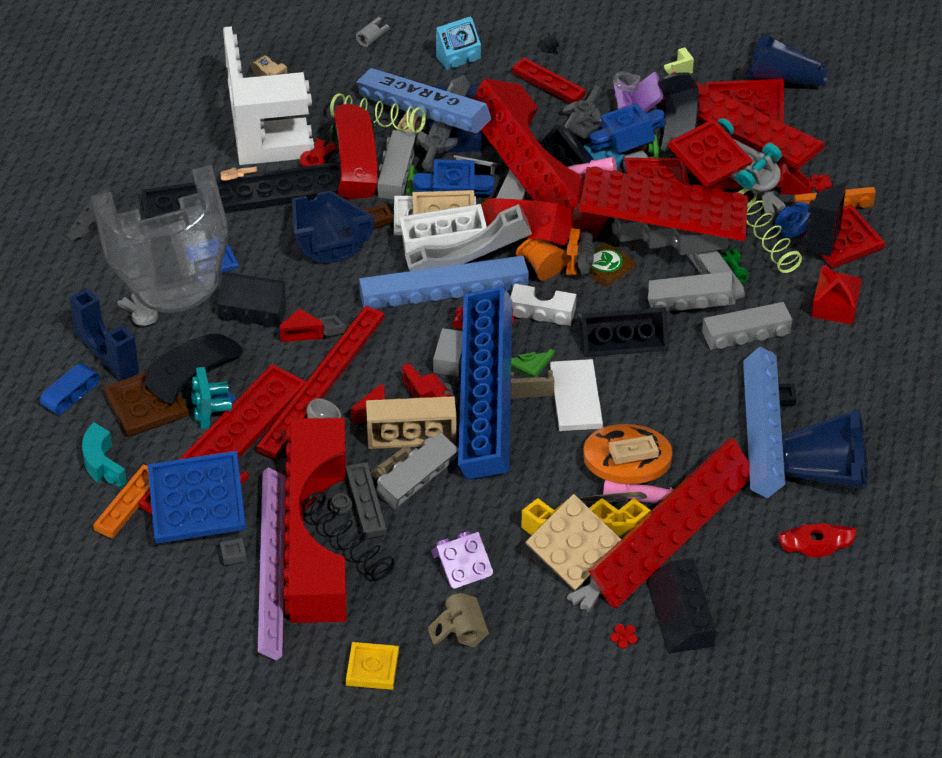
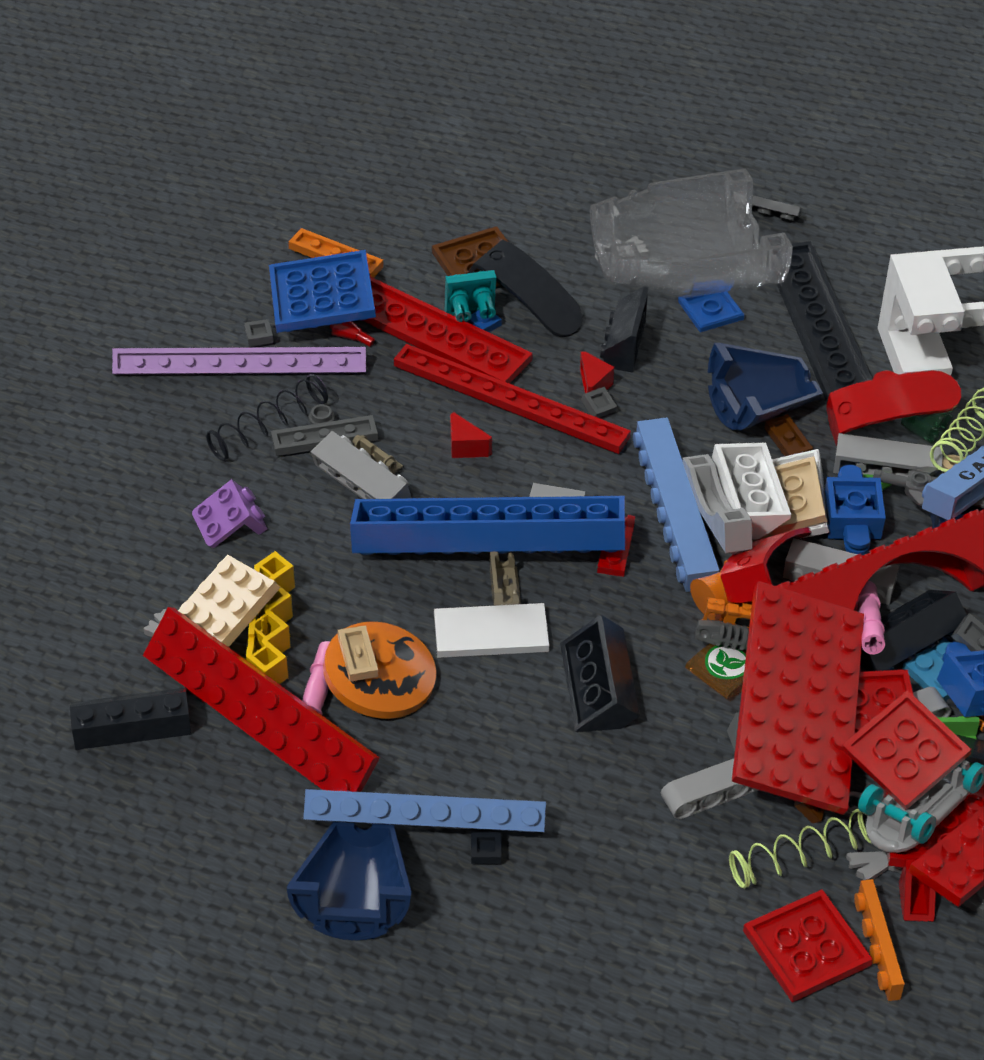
camera: 90 degrees right, 0 degrees up
(69, 388) = (497, 204): blue beam -> none
(94, 446) = (399, 225): teal arch -> none
(113, 348) = (530, 225): dark blue arch -> none
(233, 173) = (852, 316): light nougat piece -> none
(314, 575) = (203, 382): red arch -> none
(322, 409) = (450, 393): light grey piece -> none
(372, 665) = (86, 441): yellow plate -> none
(409, 421) = (428, 454): tan brick -> none
(425, 386) = (495, 479): red plate -> none
(463, 618) = (131, 509): dark tan piece -> none
(493, 165) = (898, 525): light grey piece -> none
(531, 363) = (545, 587): bright green tile -> none
(556, 310) = (644, 579): white arch -> none
(615, 496) = (287, 628): light grey piece -> none
(624, 636) = (102, 662): red plant -> none
(693, 291) = (658, 744): light grey brick -> none
(731, 260) = (751, 804): green hinge -> none
(747, 326) = (612, 813): light grey brick -> none
(793, 220) = (829, 884): blue tile -> none
(820, 182) = (928, 933): red plant -> none
(825, 220) = (792, 891): black slope -> none
(833, 538) = (230, 883): red piece -> none
(836, 296) = (670, 919): red piece -> none

